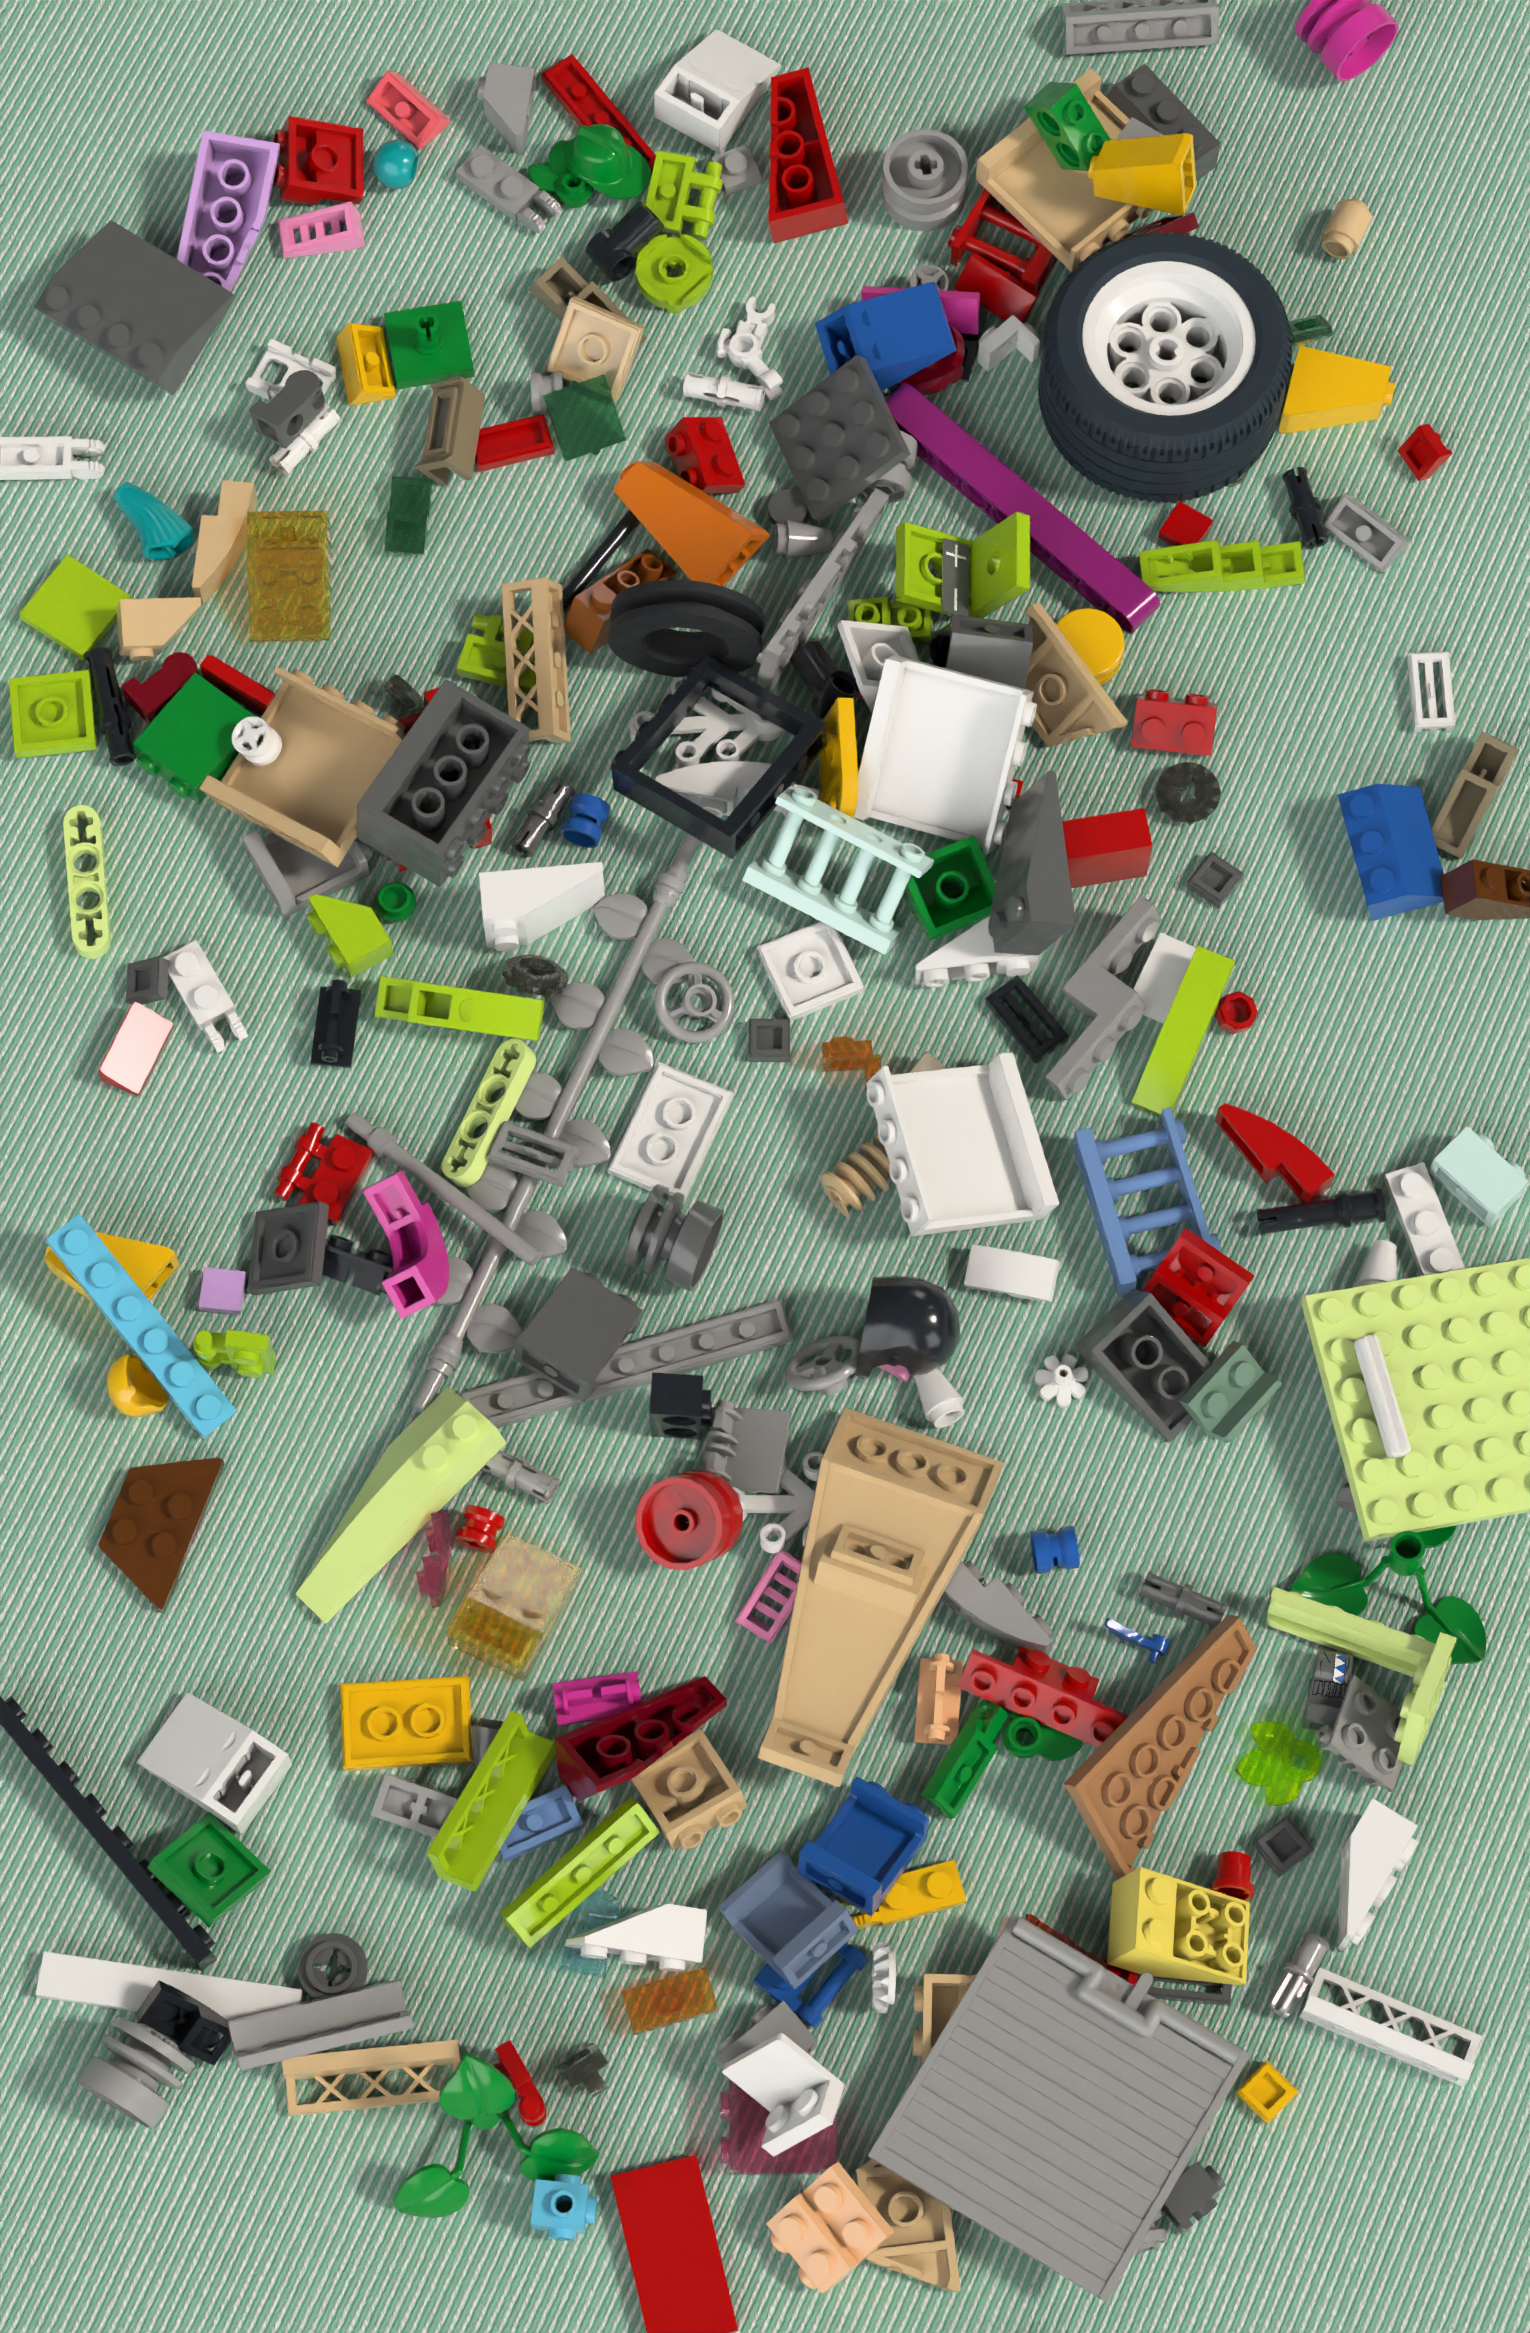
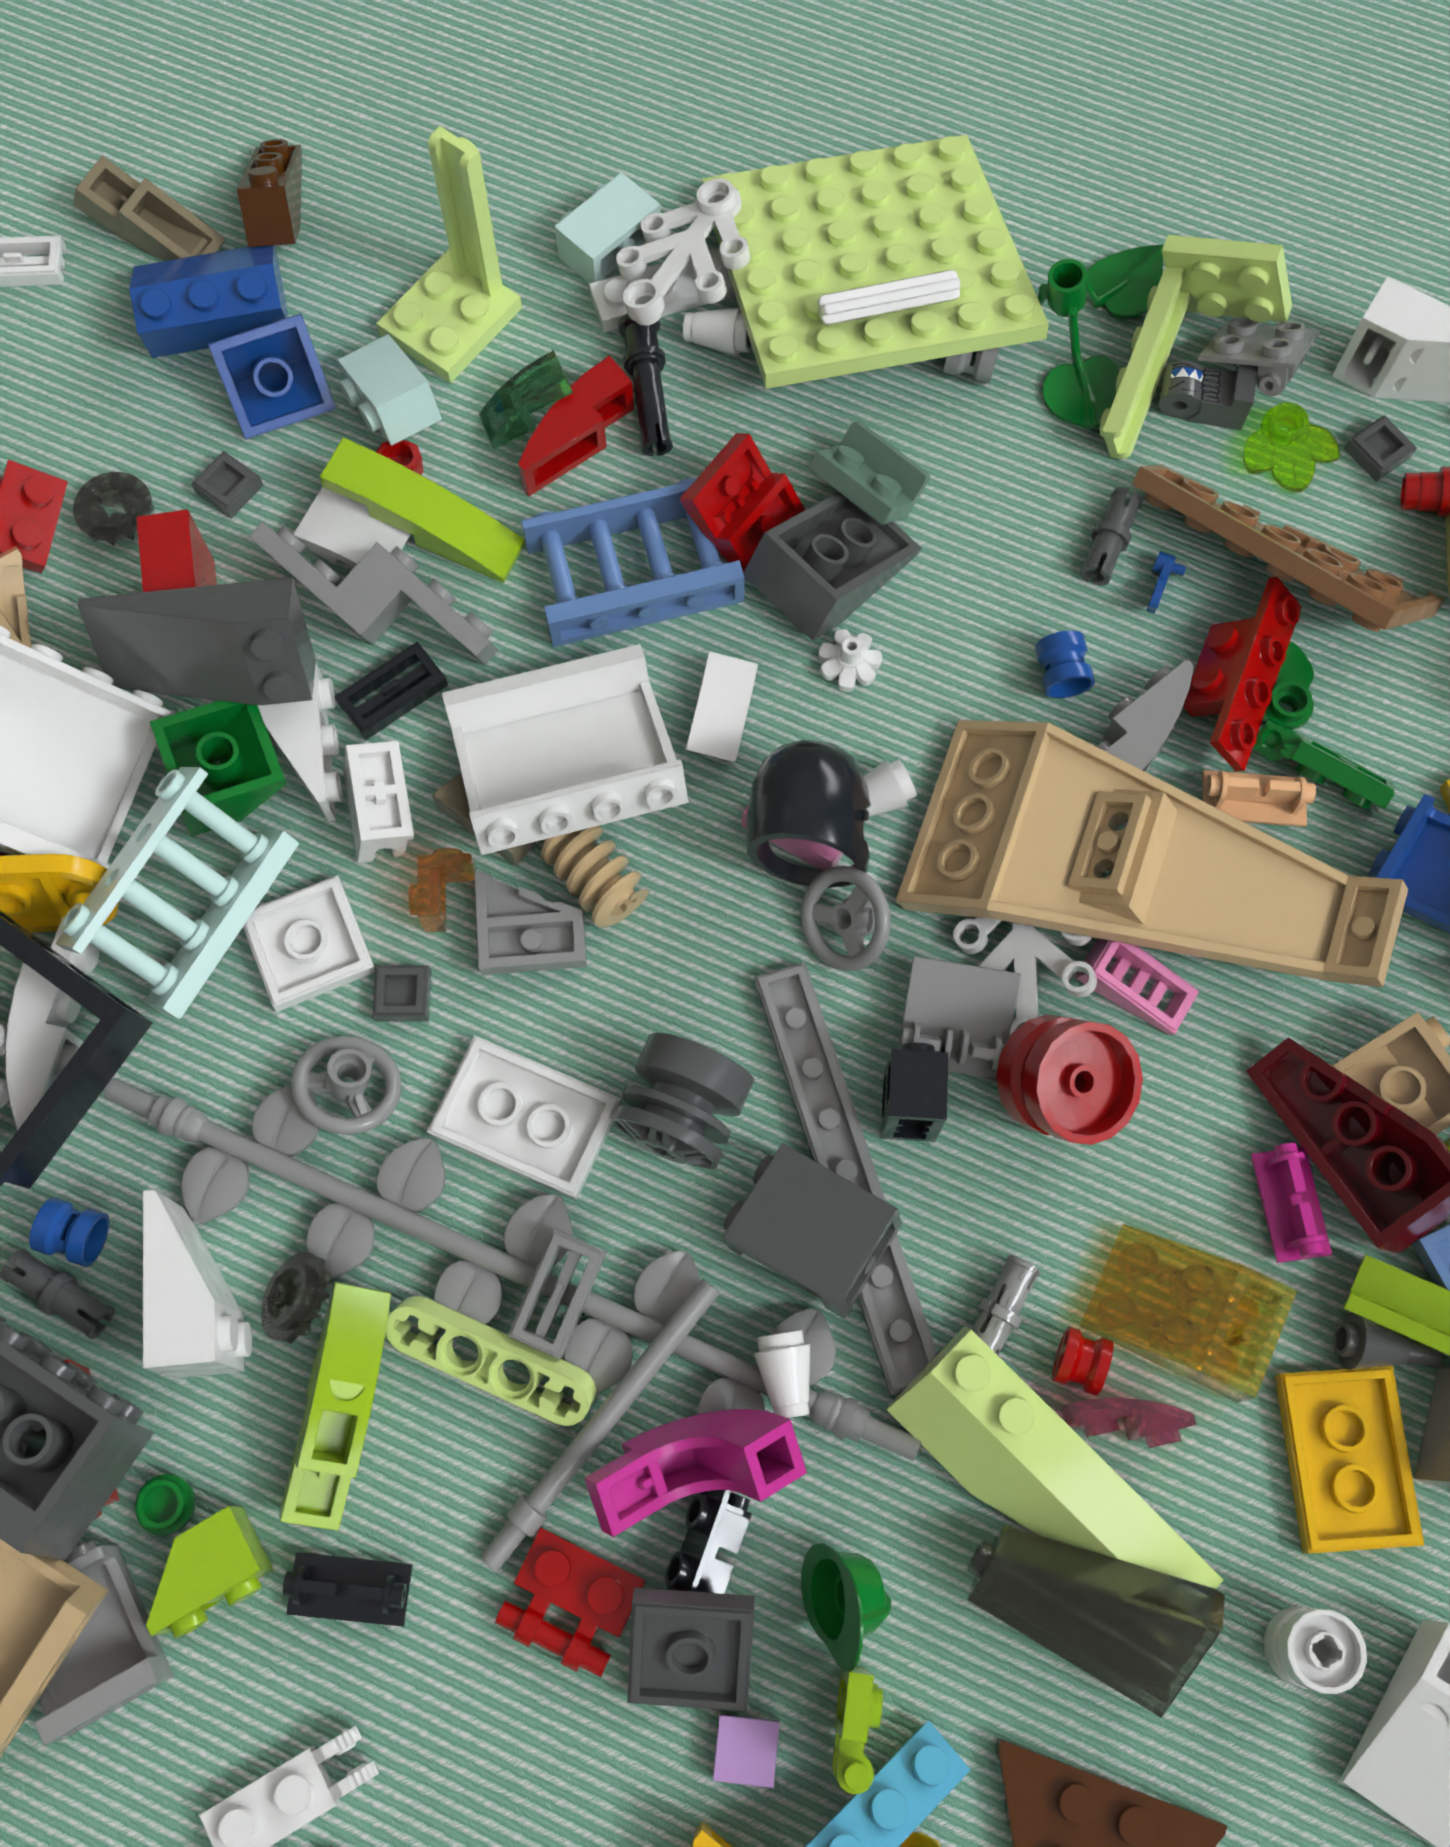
camera: 90 degrees left, 0 degrees up
(274, 1673) = (1315, 1649): none -> white wheel
(304, 1520) = (1099, 1612): none -> clear smoke slope
(320, 1354) = (843, 1600): none -> green piece
(473, 1309) = (785, 1372): none -> white cone
(819, 1126) = (525, 931): none -> light grey wing
(924, 1010) = (377, 799): none -> white hinge
(1296, 1108) = (531, 389): none -> clear green slope
(1297, 998) = (388, 390): none -> light aqua brick
(1310, 908) = (272, 376): none -> blue slope
(1395, 1047) = (461, 296): none -> yellowish green bracket
(1442, 1234) = (715, 206): none -> white plant

